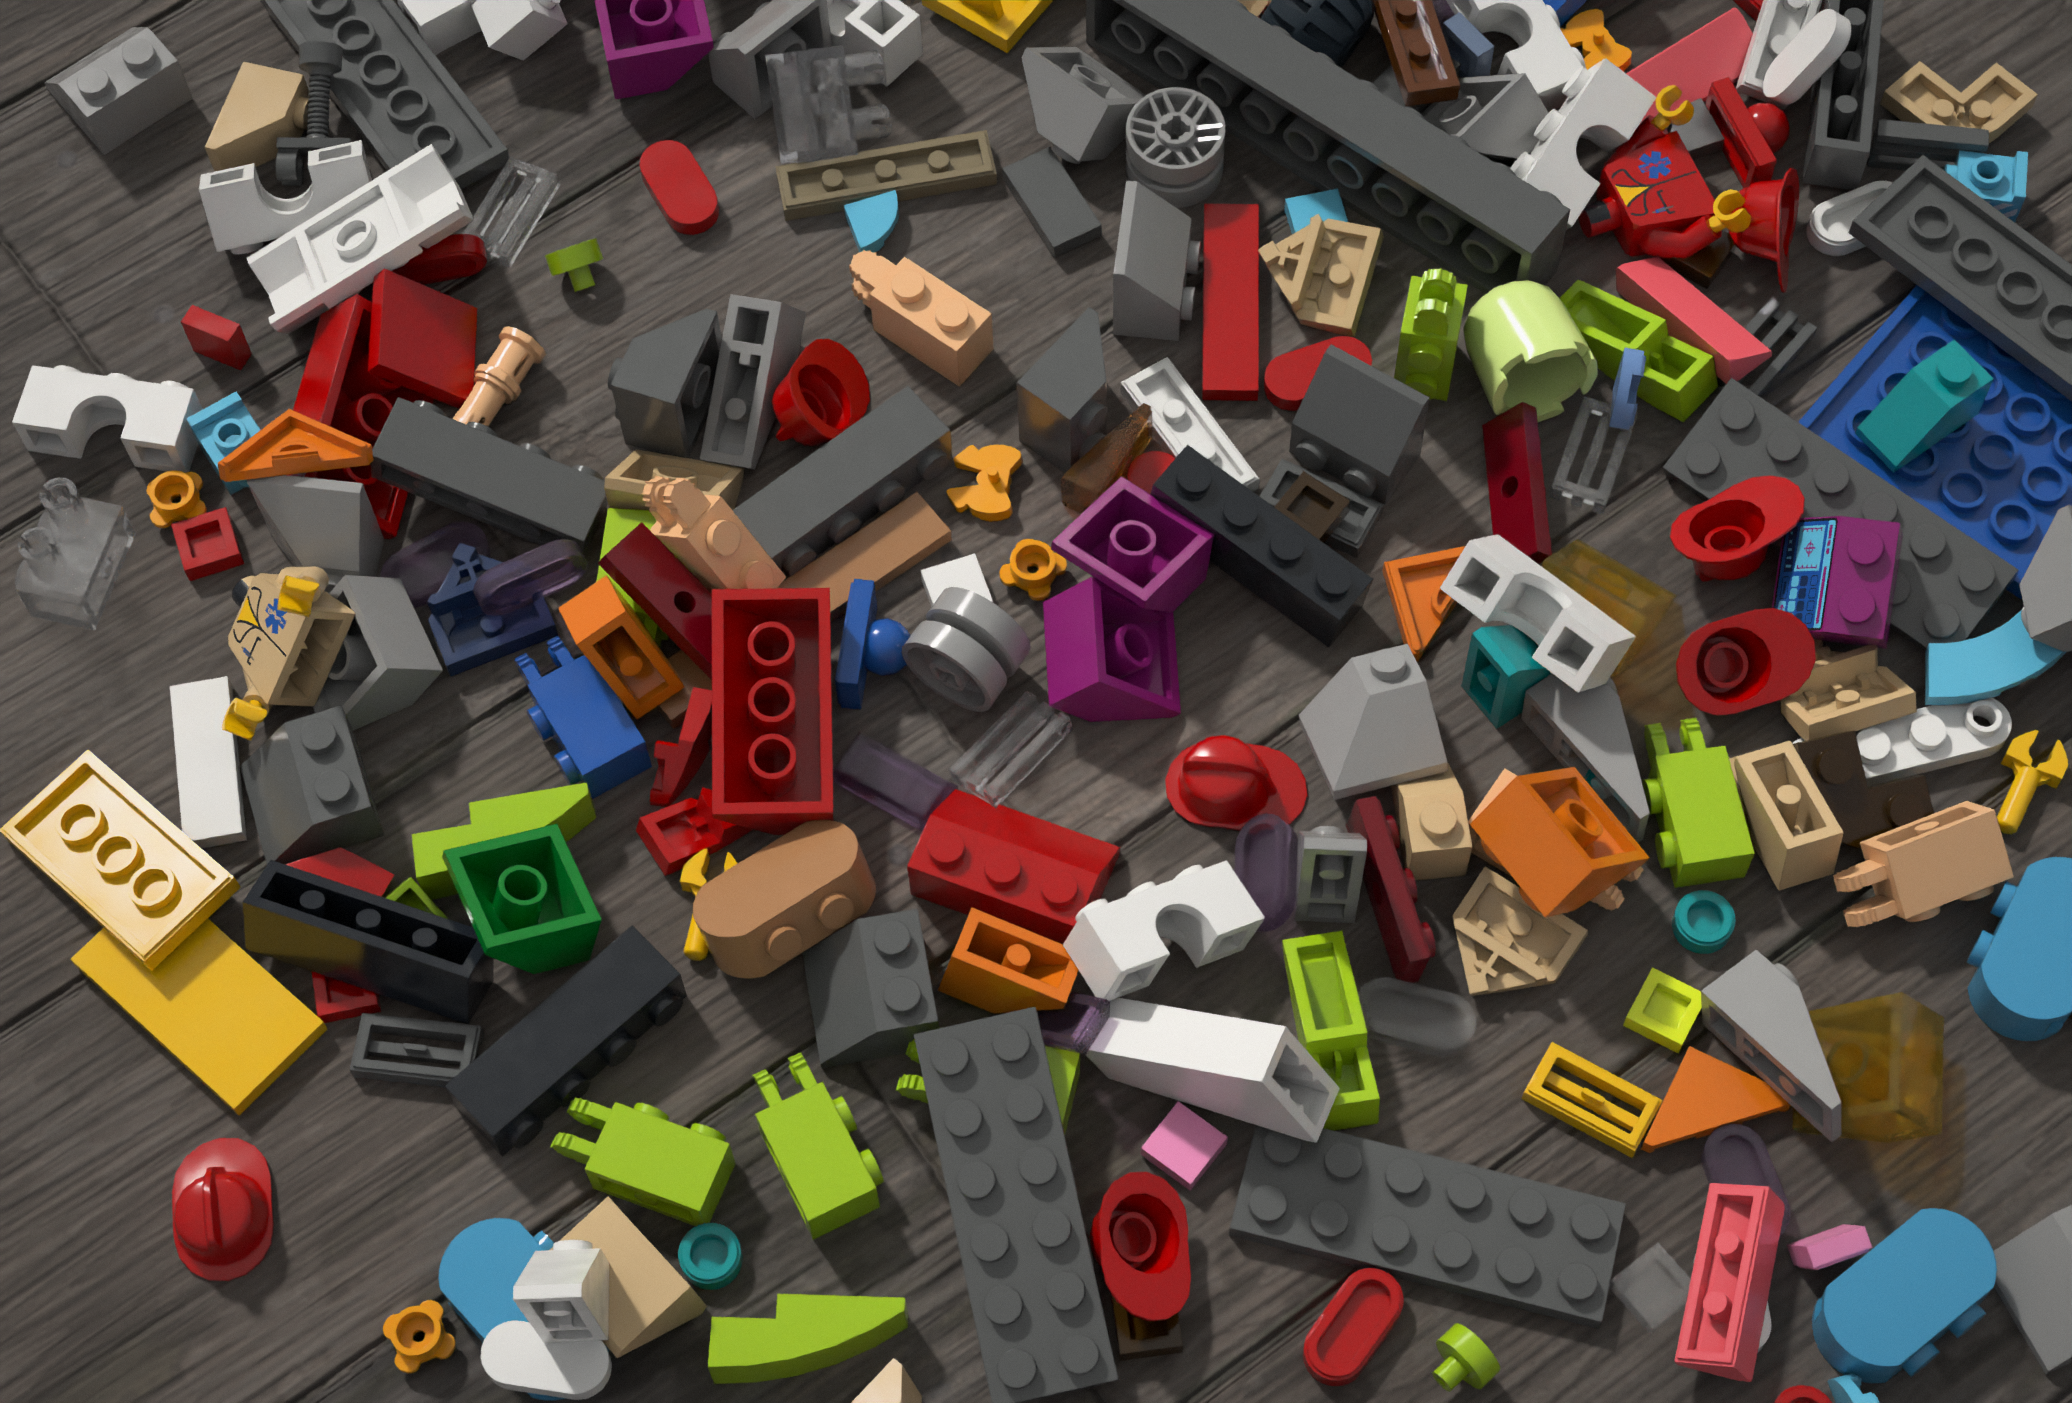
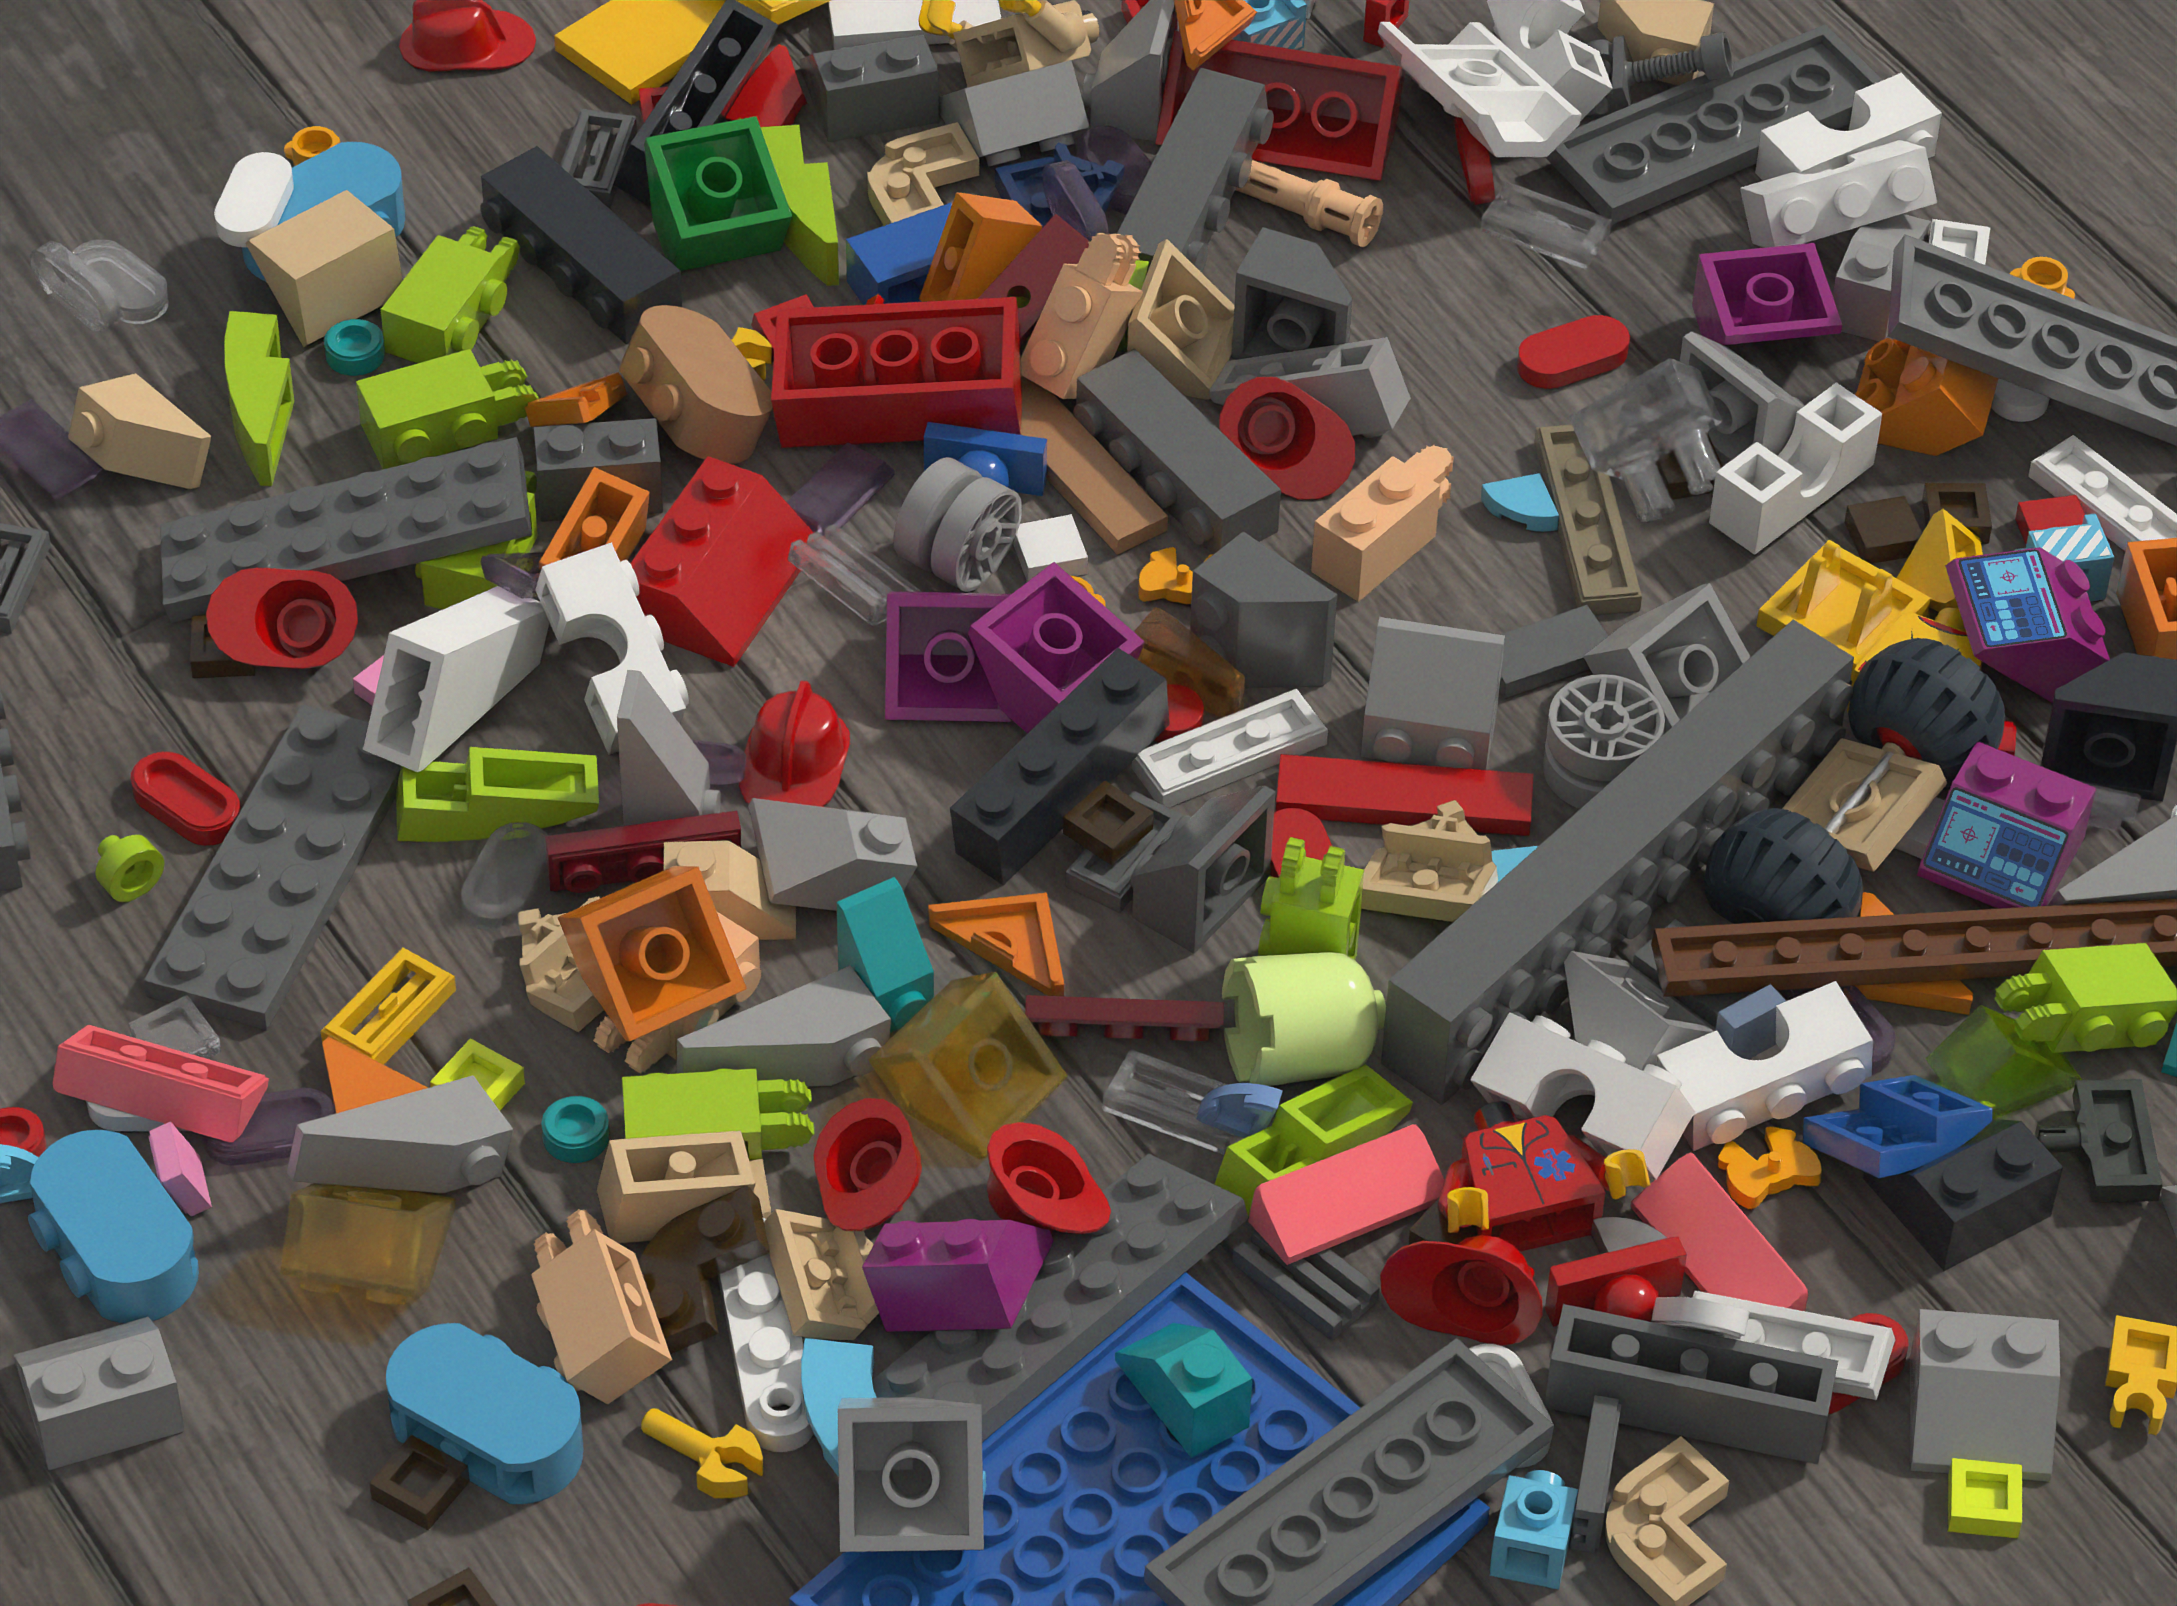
camera: 90 degrees right, 15 degrees down
(422, 339) = (1368, 136): red tile -> none
(457, 751) = (916, 164): none -> tan plate
(566, 1292) = (283, 157): white slope -> none
(575, 262) = (1471, 262): lime tile -> none
(815, 1009) = (577, 403): none -> orange tile
(1509, 587) = (966, 926): white arch -> none

